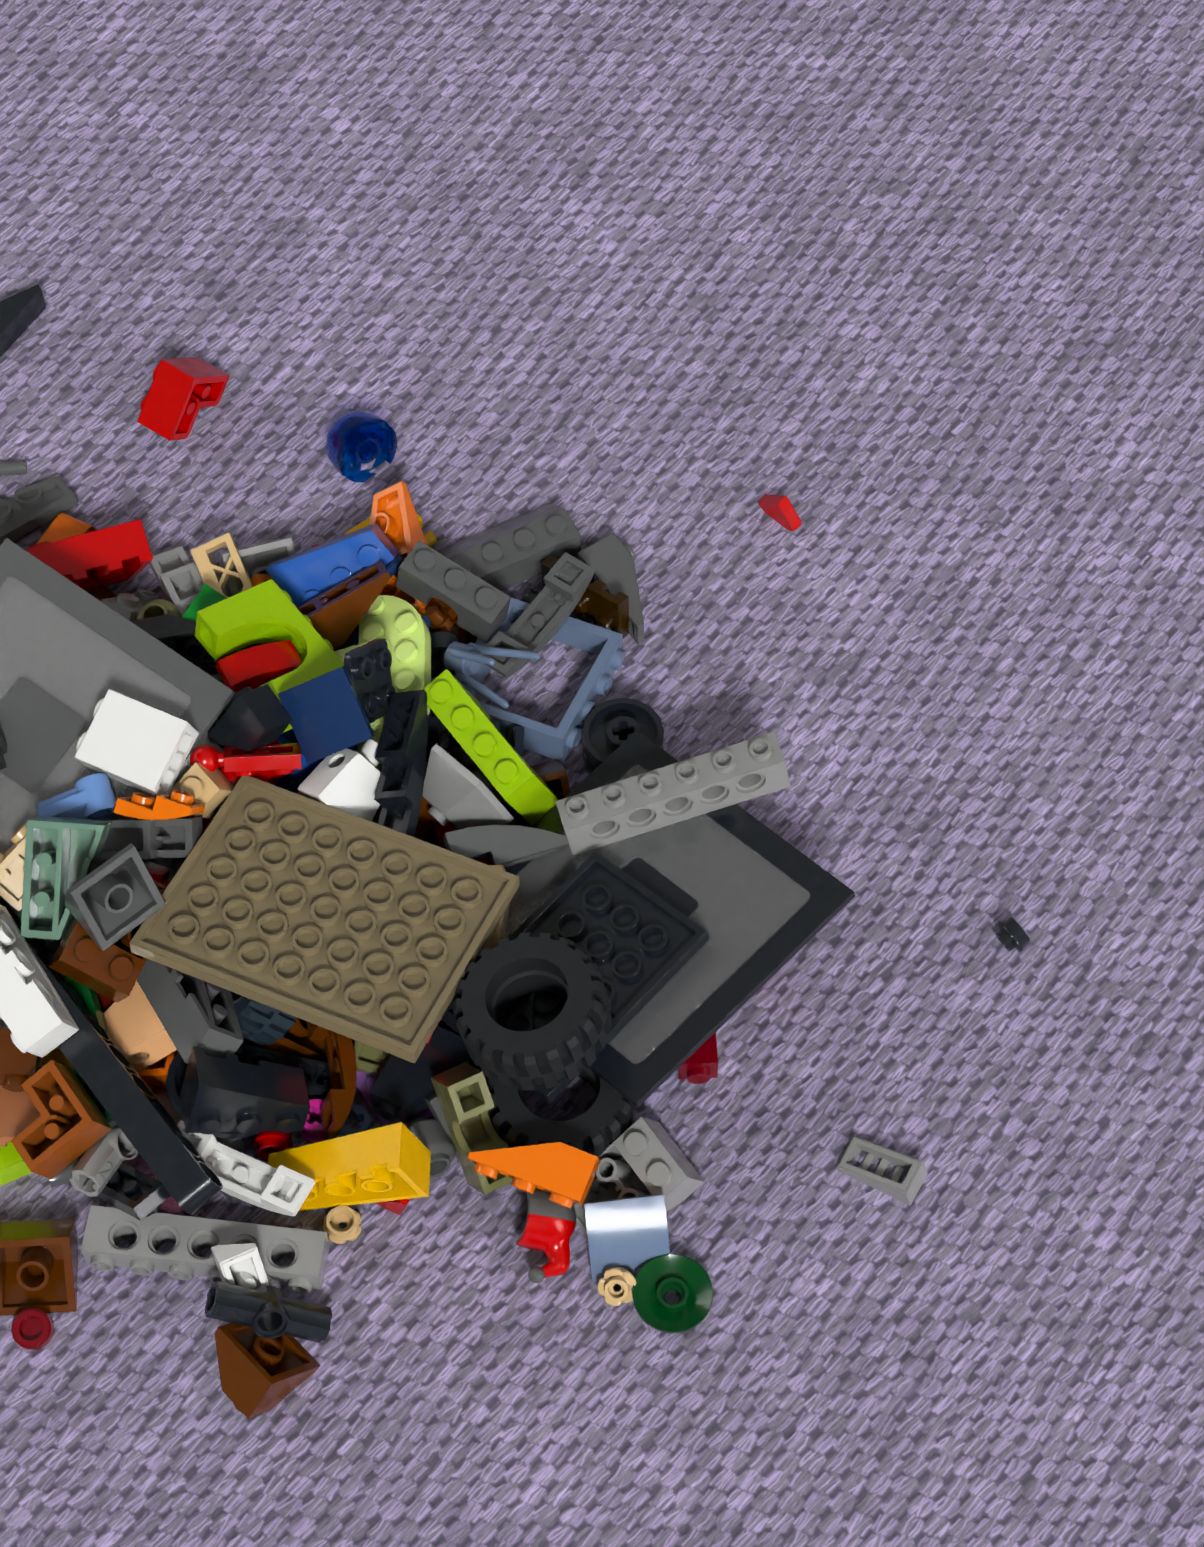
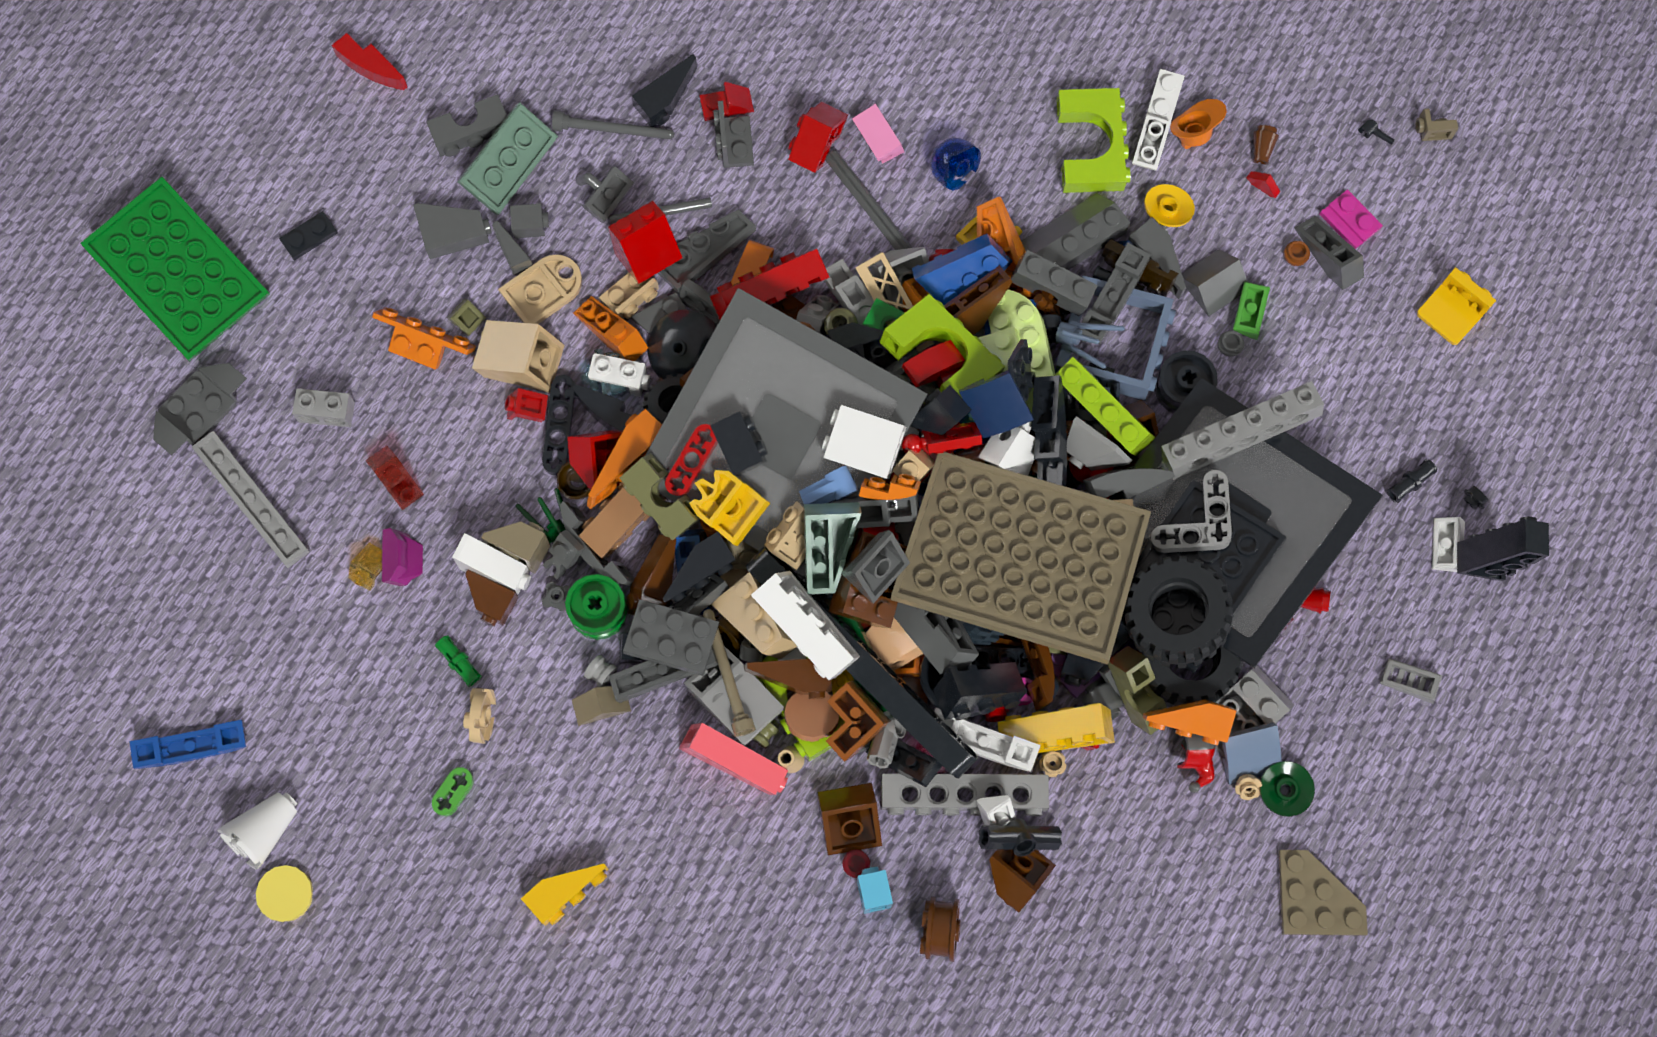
camera: 10 degrees left, 15 degrees up
(43, 1362) = (874, 890): none -> medium azure brick
(68, 391) = (733, 139): none -> dark grey bracket
(78, 350) = (735, 101): none -> red slope
(128, 1424) = (940, 928): none -> reddish brown wheel
(233, 481) = (867, 201): none -> dark grey axle
(265, 403) = (878, 134): none -> bright pink hinge
(566, 474) = (1105, 110): none -> lime arch
(596, 913) = (1204, 530): none -> light grey beam
(643, 524) = (1171, 198): none -> yellow dish
(647, 420) = (1158, 120): none -> white slope
(692, 626) = (1215, 281): none -> dark grey slope
(692, 1455) = (1316, 900): none -> dark tan plate
(699, 429) = (1197, 123): none -> orange piece
(699, 704) = (1230, 343): none -> dark grey plate
(734, 664) = (1251, 310): none -> bright green slope
(756, 1044) = (1318, 600): none -> red cone
(789, 460) = (1264, 143): none -> reddish brown cone
(811, 601) = (1296, 253): none -> dark orange plate
(859, 604) = (1332, 252): none -> dark grey slope
(894, 567) = (1351, 219): none -> dark pink plate
(924, 903) = (1411, 481): none -> black pin
(940, 456) = (1371, 127): none -> black hand
(966, 993) = (1445, 537): none -> white slope
(1022, 686) = (1455, 306): none -> yellow bracket
(1024, 991) = (1503, 549): none -> black wedge
(1028, 465) = (1435, 130): none -> dark tan bracket

